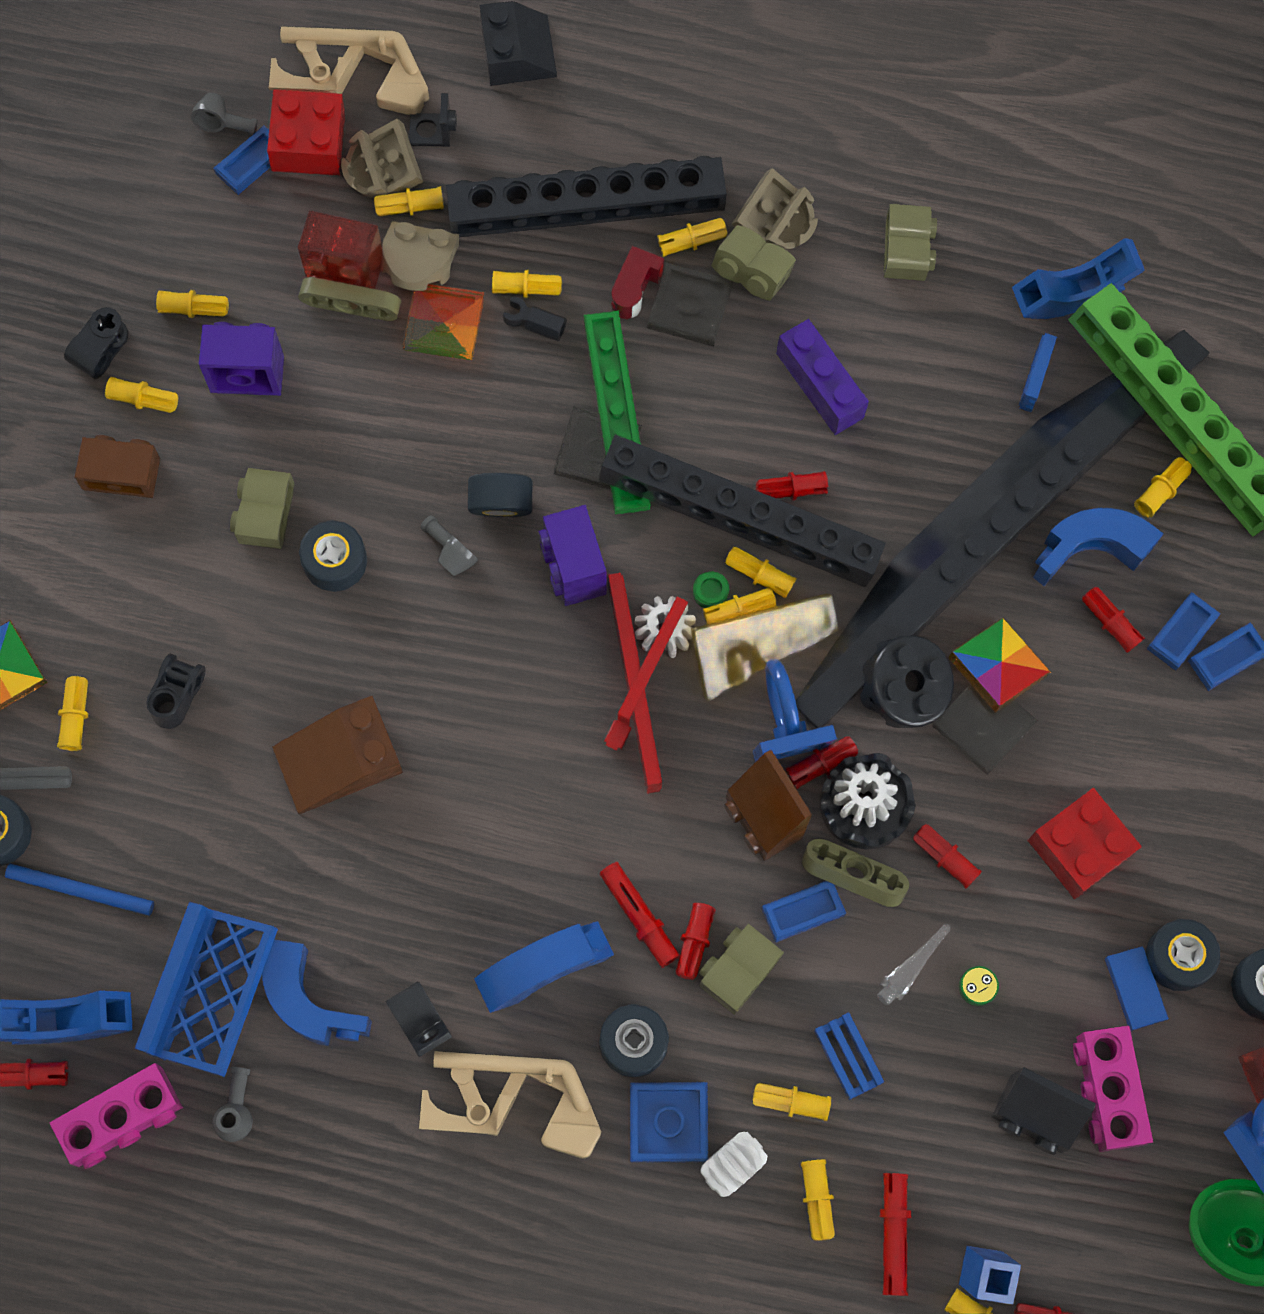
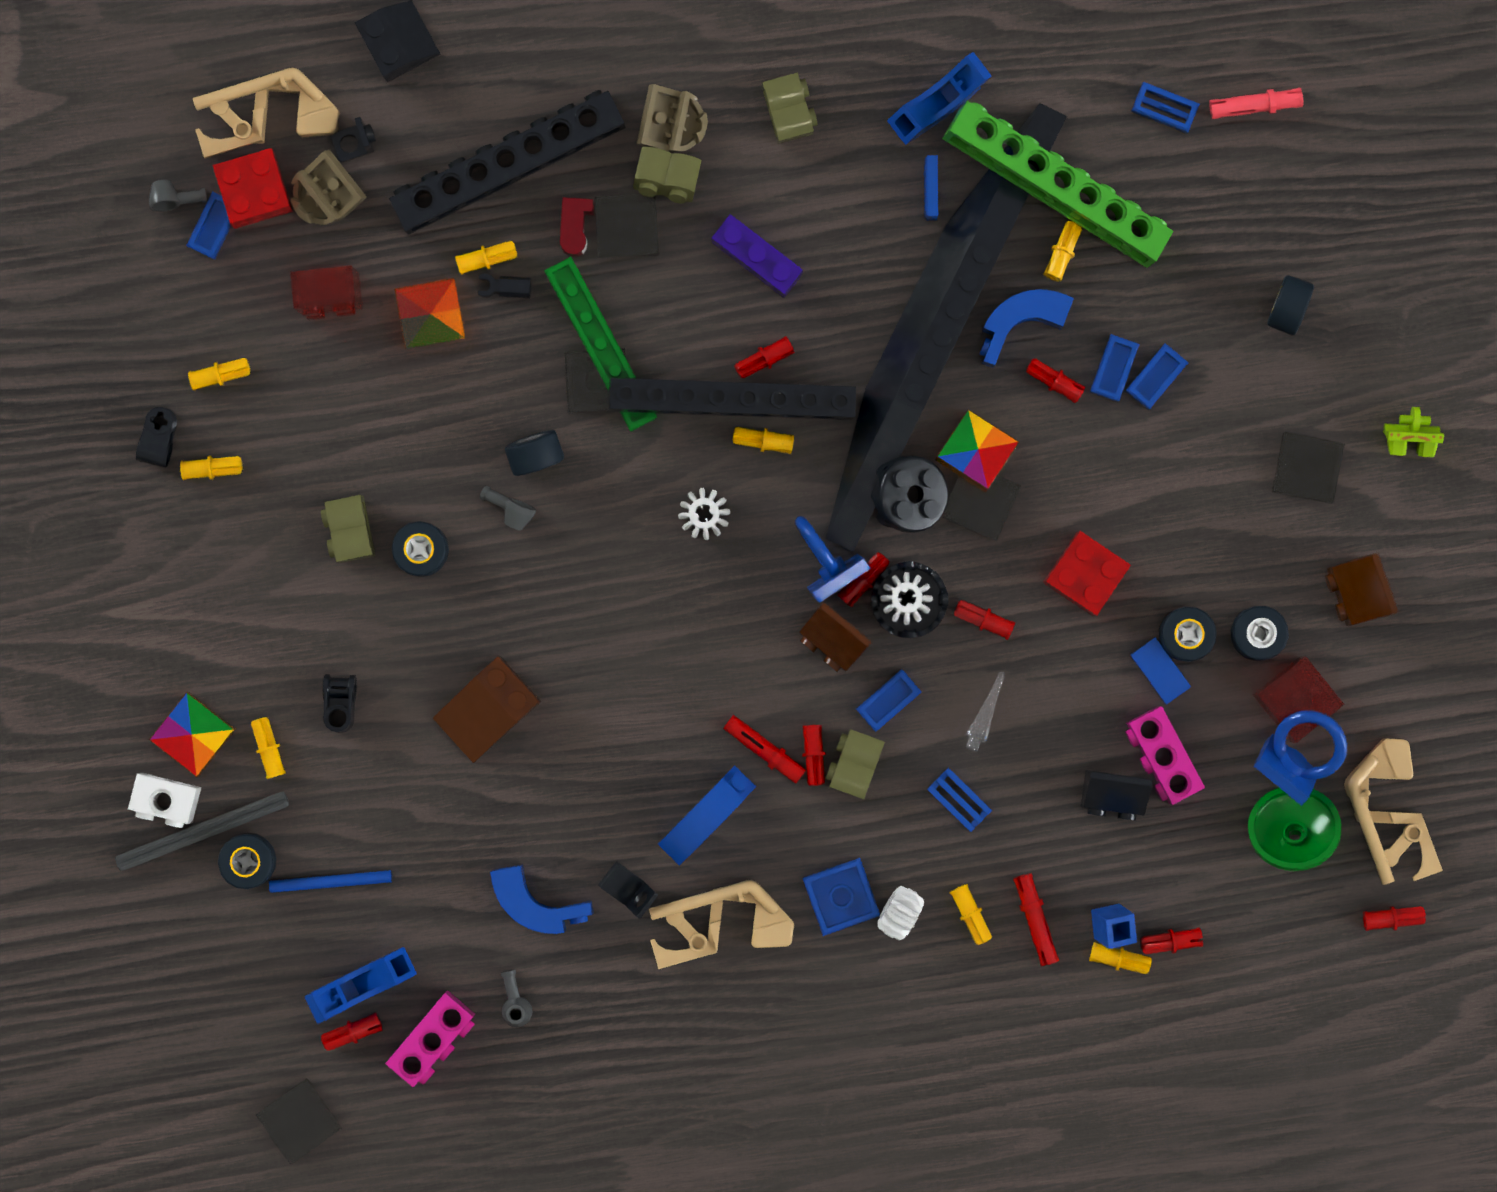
camera: 10 degrees left, 15 degrees up
(117, 466) = (218, 536): reddish brown brick -> none
(182, 973) = (437, 918): blue fence -> none
(241, 359) = (283, 412): dark purple brick -> none
(349, 299) = (346, 324): olive beam -> none
(408, 202) = (361, 218): yellow axle -> none
(417, 255) = (387, 265): dark tan slope -> none
(575, 556) = (613, 485): dark purple brick -> none
(620, 728) = (698, 608): red piece -> none
(631, 668) = (696, 567): red tile -> none
(635, 1054) = (785, 847): black wheel -> none
(692, 236) = (608, 165): yellow axle -> none
(710, 589) = (729, 467): green tile -> none
(740, 606) = (757, 476): yellow axle -> none
(743, 644) = (773, 505): clear yellow wing -> none
(791, 1101) = (928, 849): yellow axle -> none
(870, 868) = (927, 649): olive beam -> none
(978, 986) = (1040, 711): tile -> none

